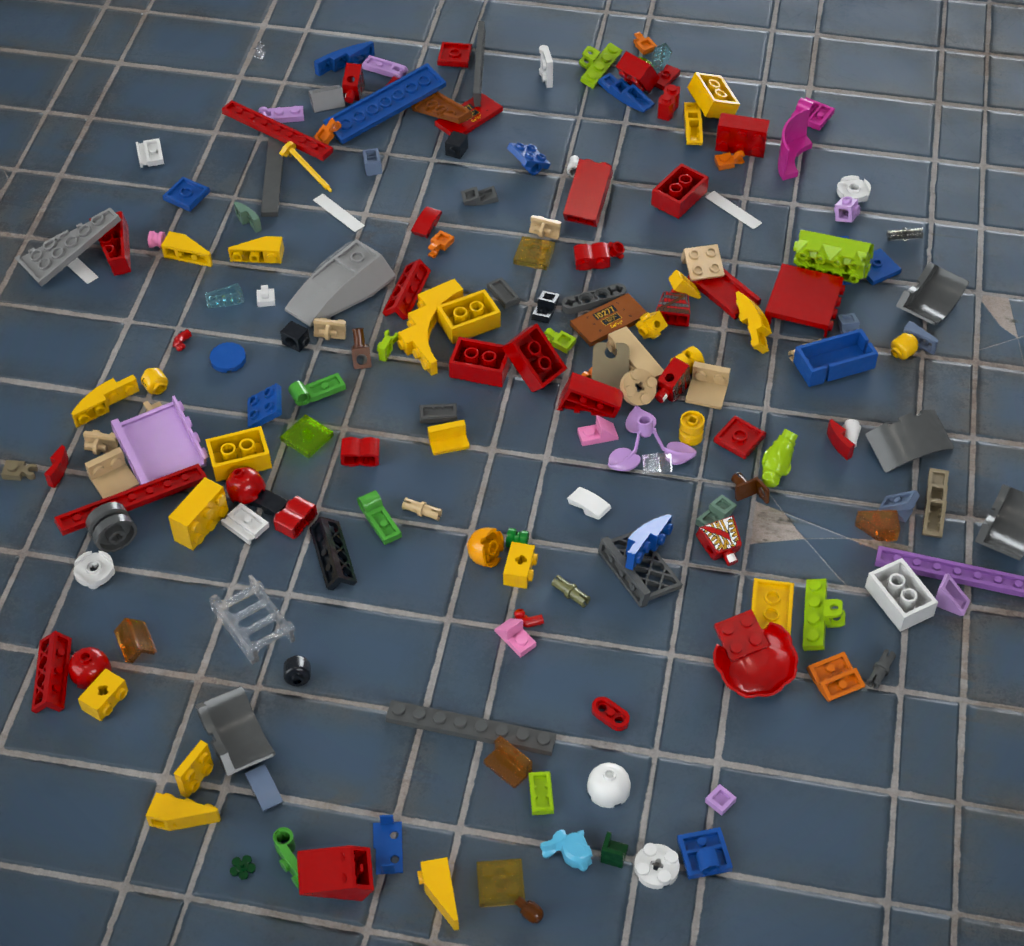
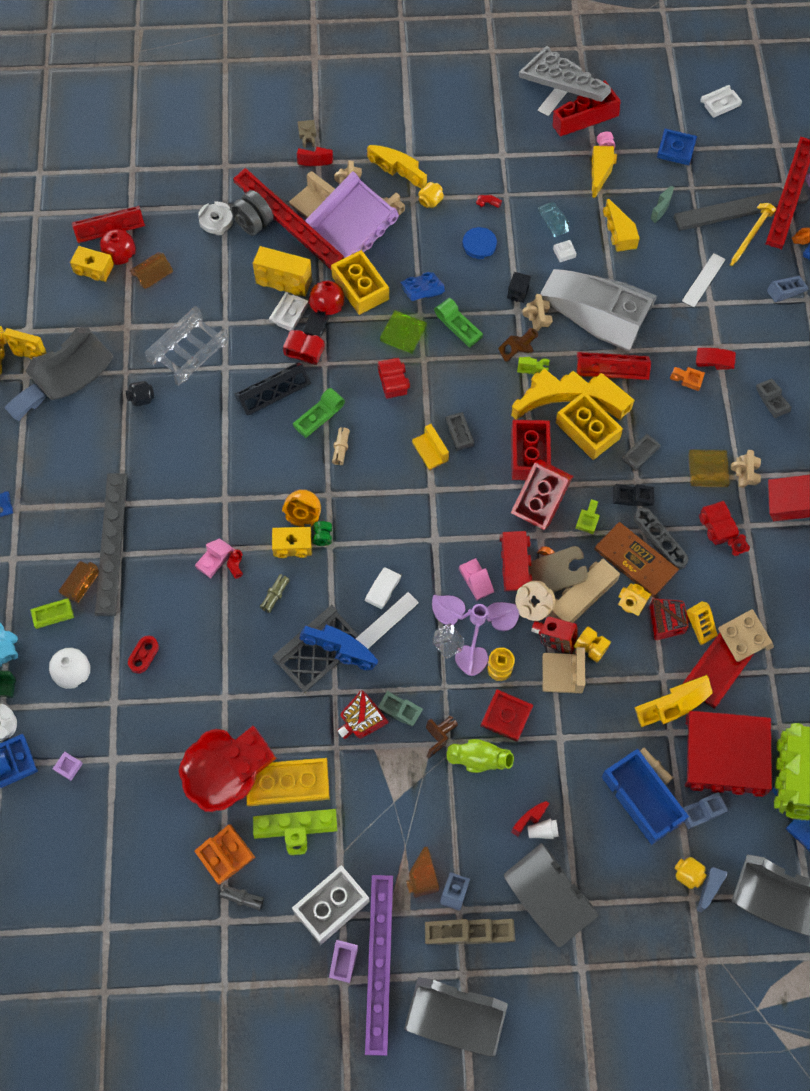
camera: 75 degrees right, 15 degrees up
(621, 505) = (387, 620): none -> white sticker

